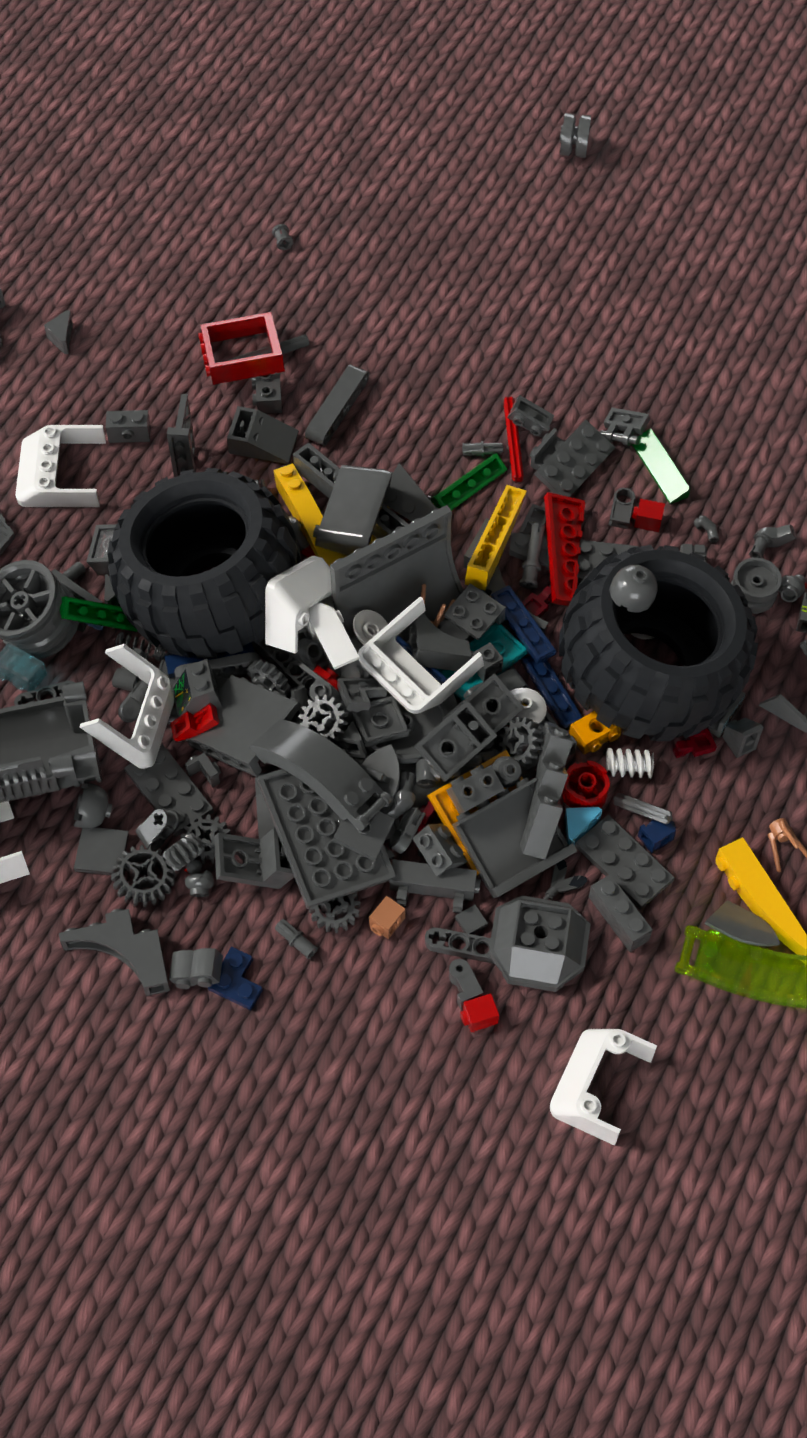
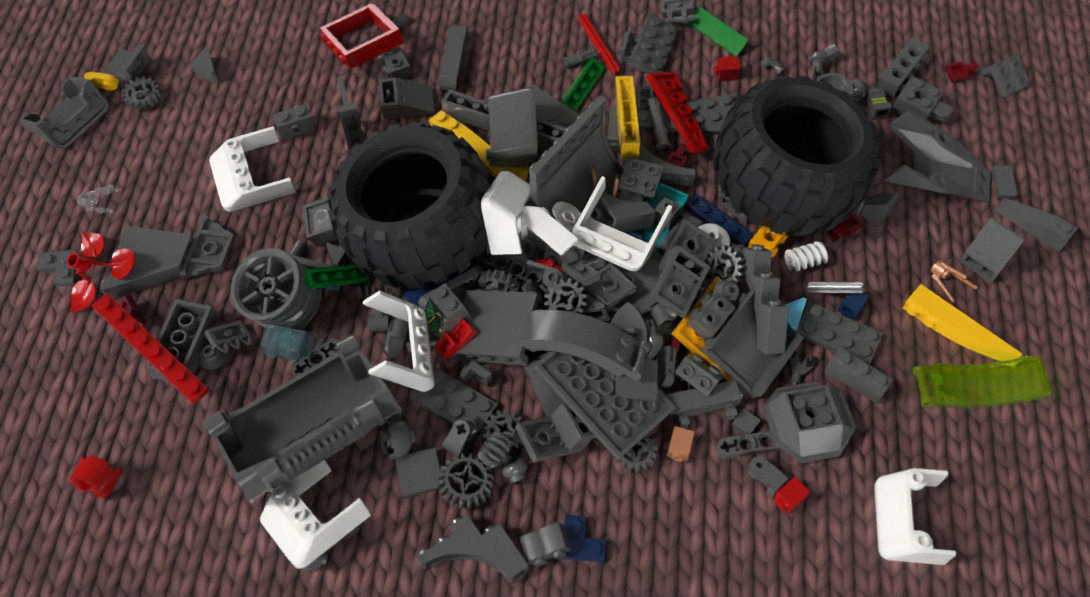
camera: 20 degrees left, 0 degrees up
(296, 938) = (614, 488): dark grey axle -> none
(524, 625) = (681, 178): dark blue tile -> none
(530, 416) = (606, 23): dark grey bracket -> none
(586, 785) = (791, 282): red brick -> none
(621, 511) = (704, 73): dark grey piece -> none
(634, 588) = (778, 113): dark grey cylinder -> none
(742, 925) = (954, 352): dark grey shield -> none

